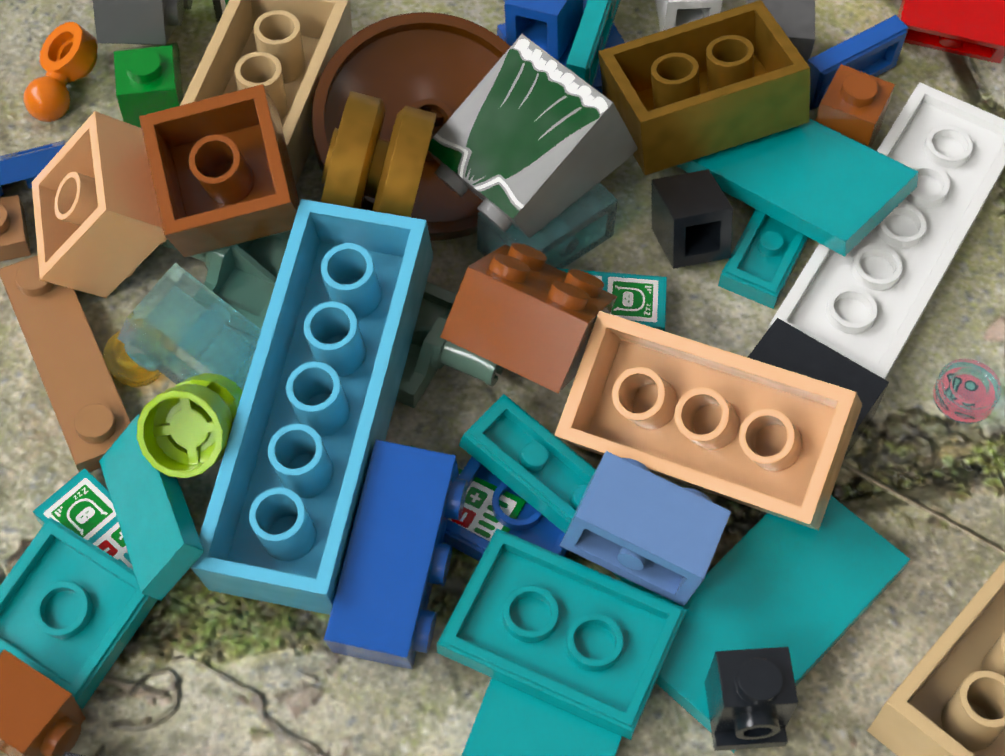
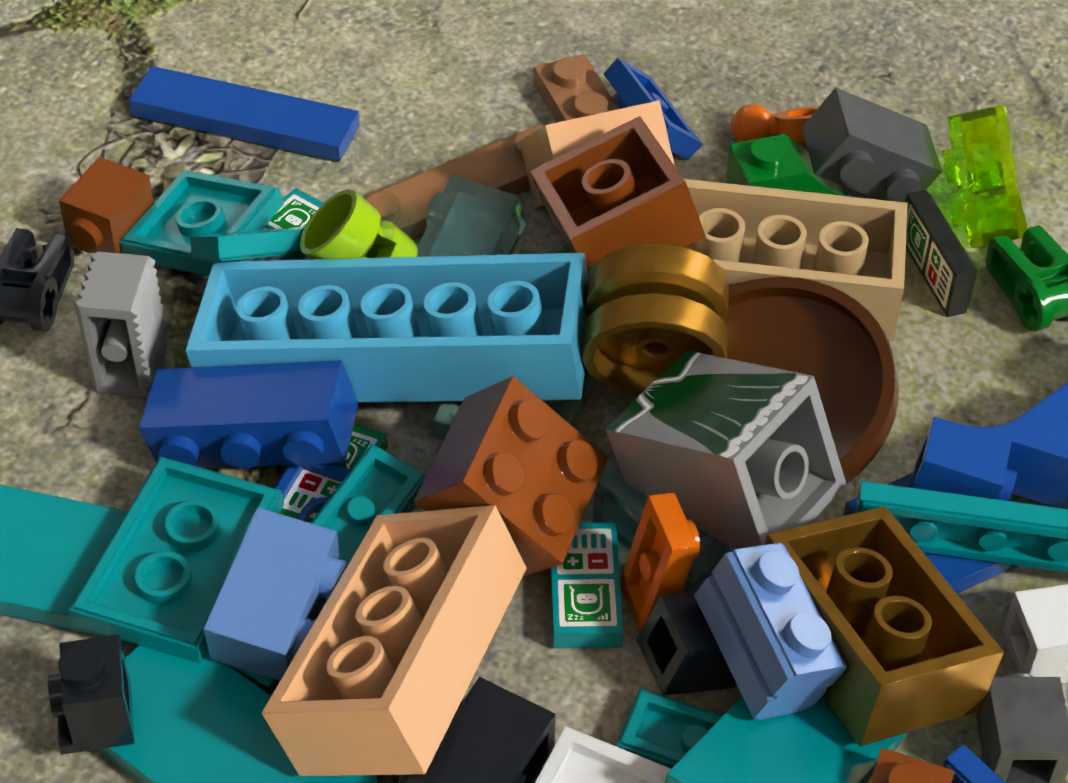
camera: 85 degrees right, 10 degrees down
(247, 672) = (122, 323): none -> light grey brick
(627, 222) = (658, 556): none -> orange plate
(726, 142) = (769, 631): none -> medium blue brick

